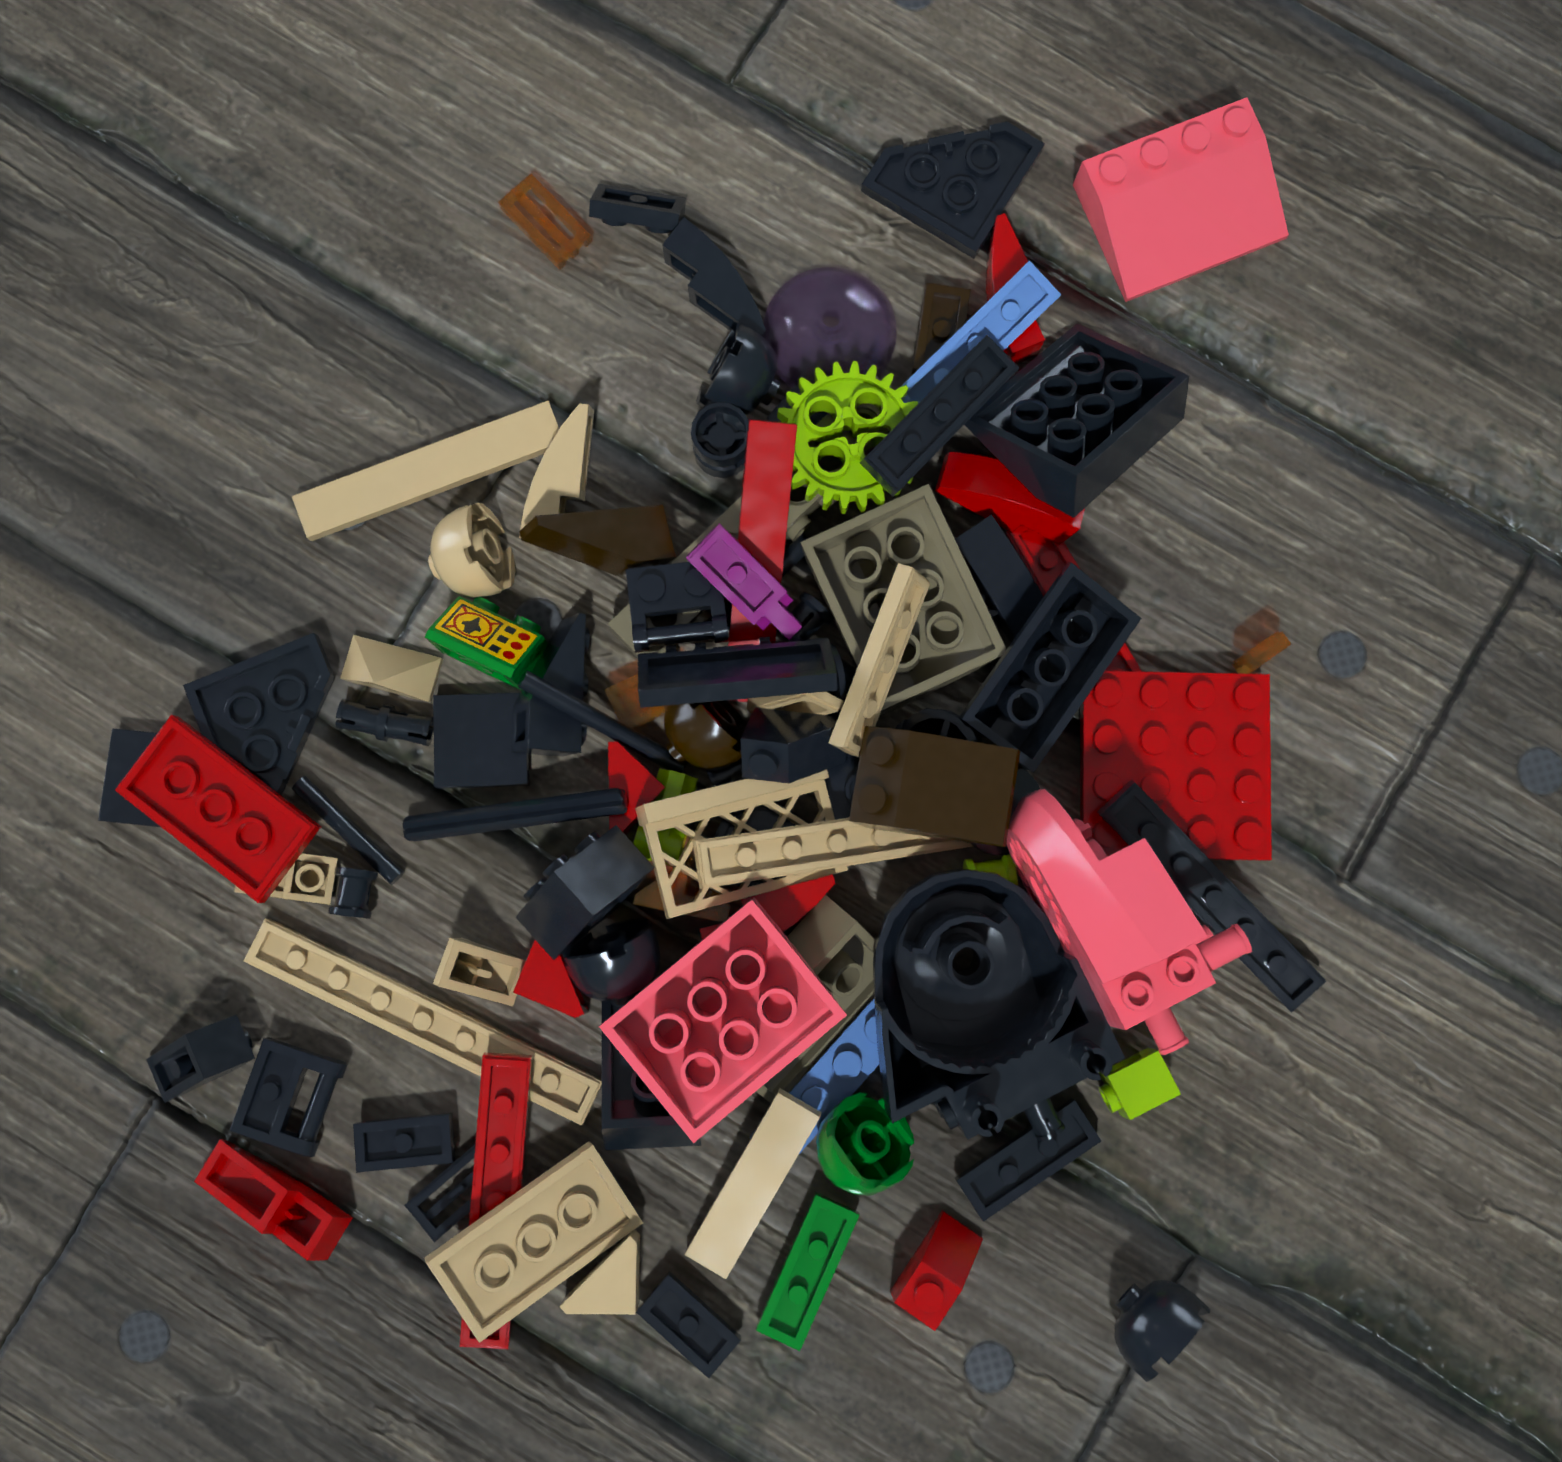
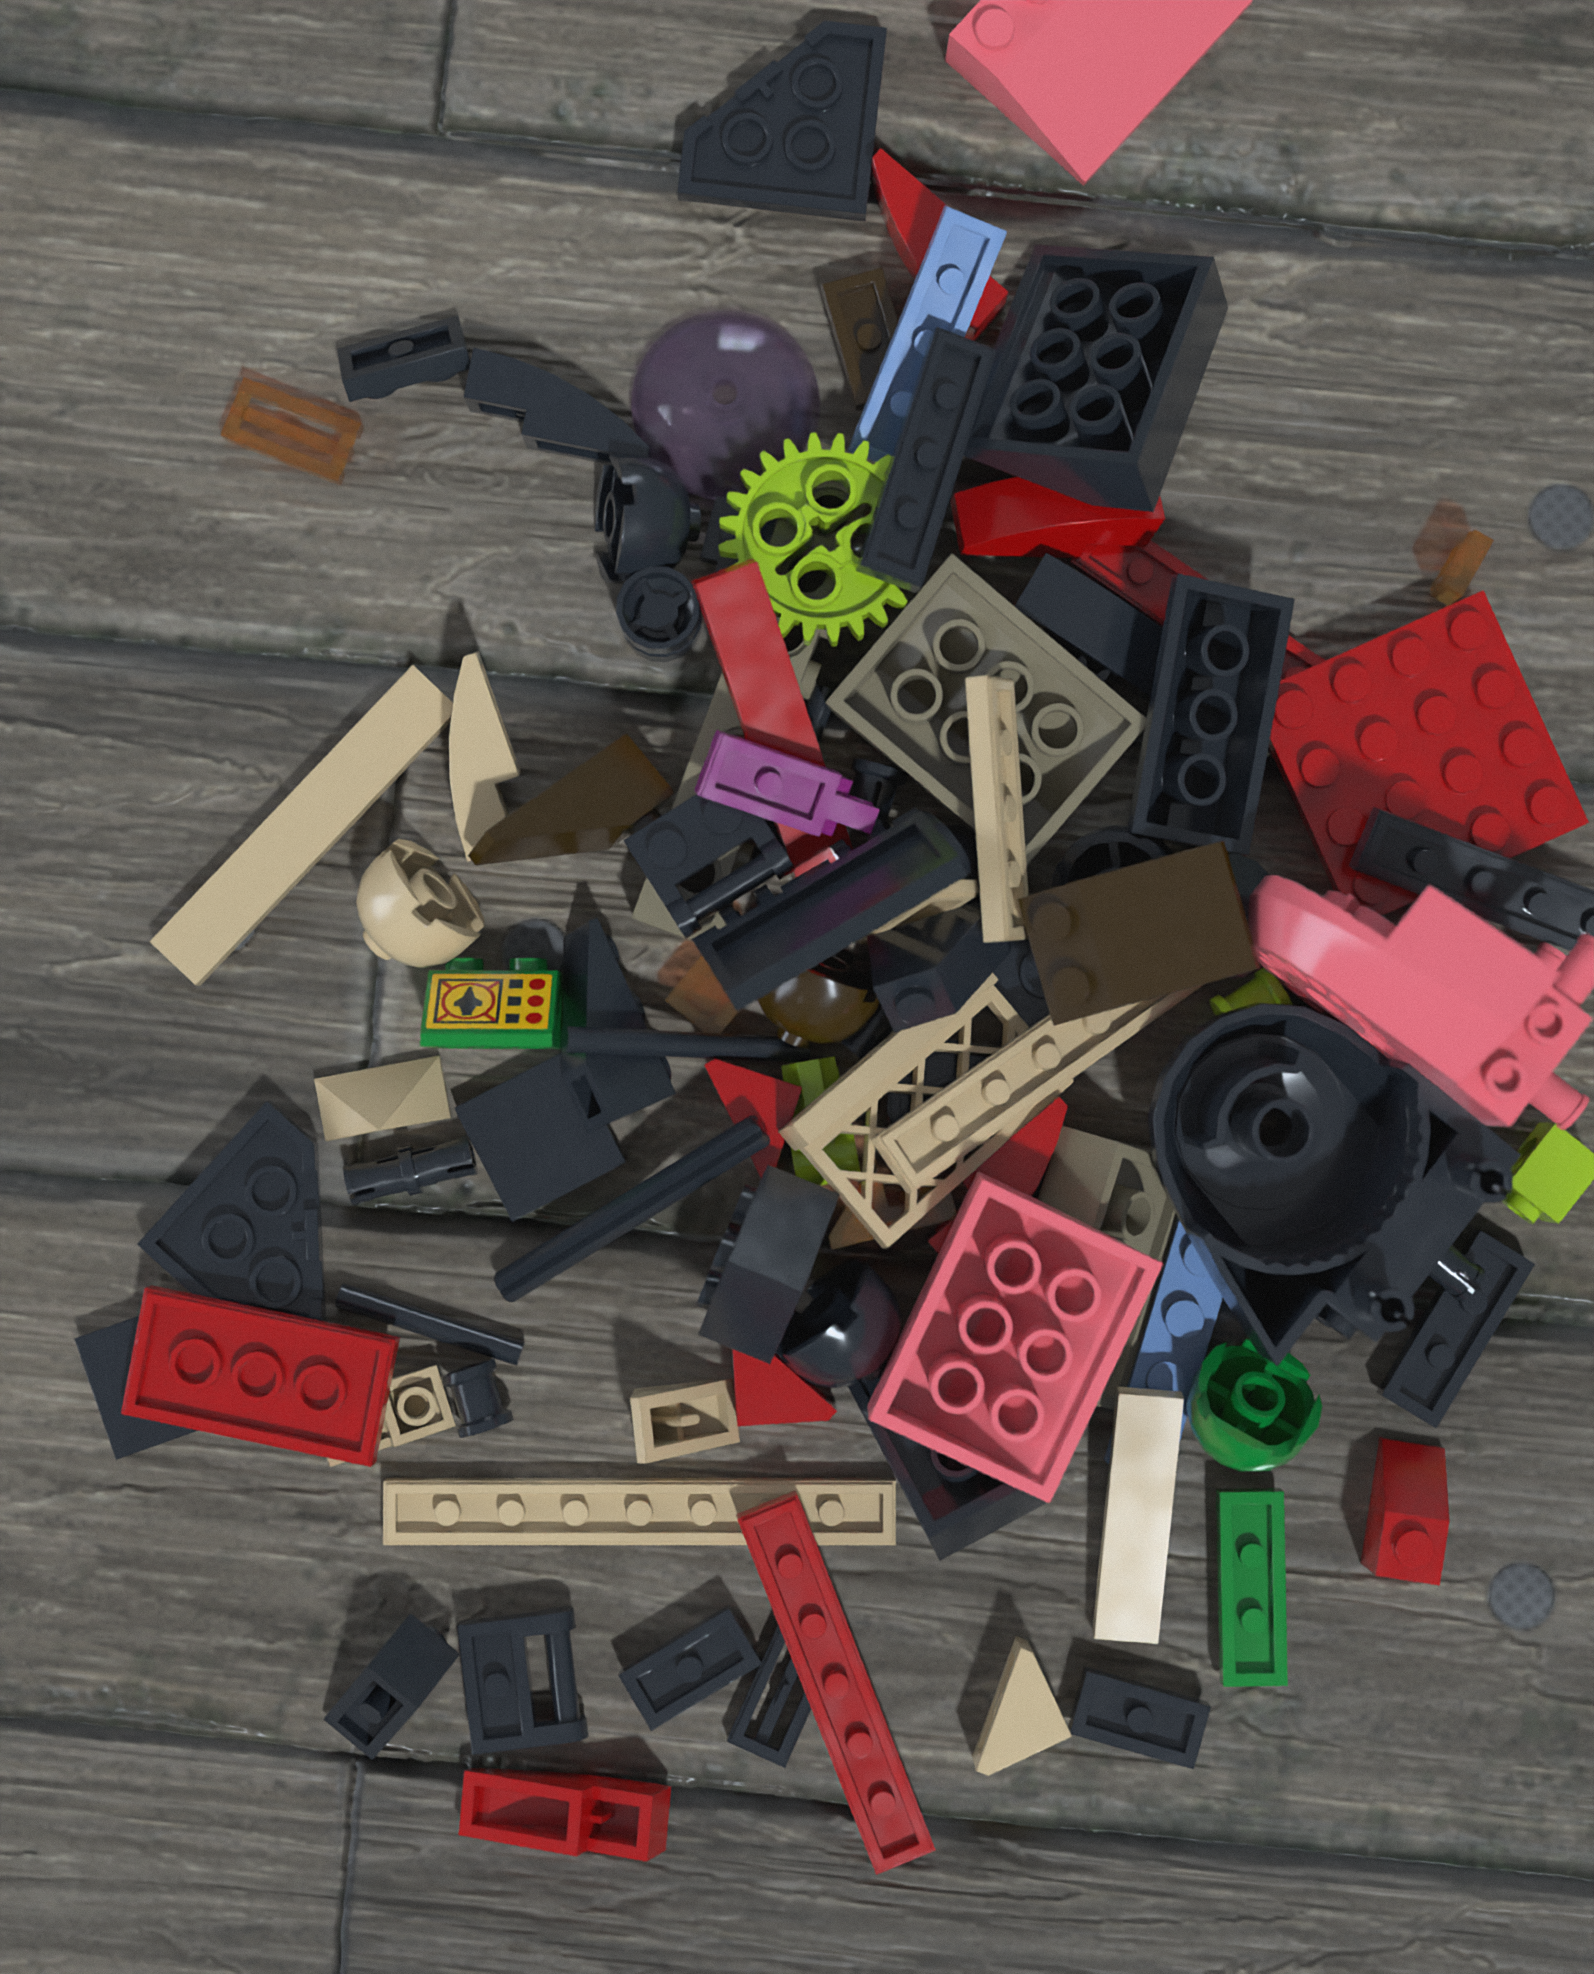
camera: 25 degrees left, 5 degrees up
(533, 1241) = (907, 1708): tan plate -> none

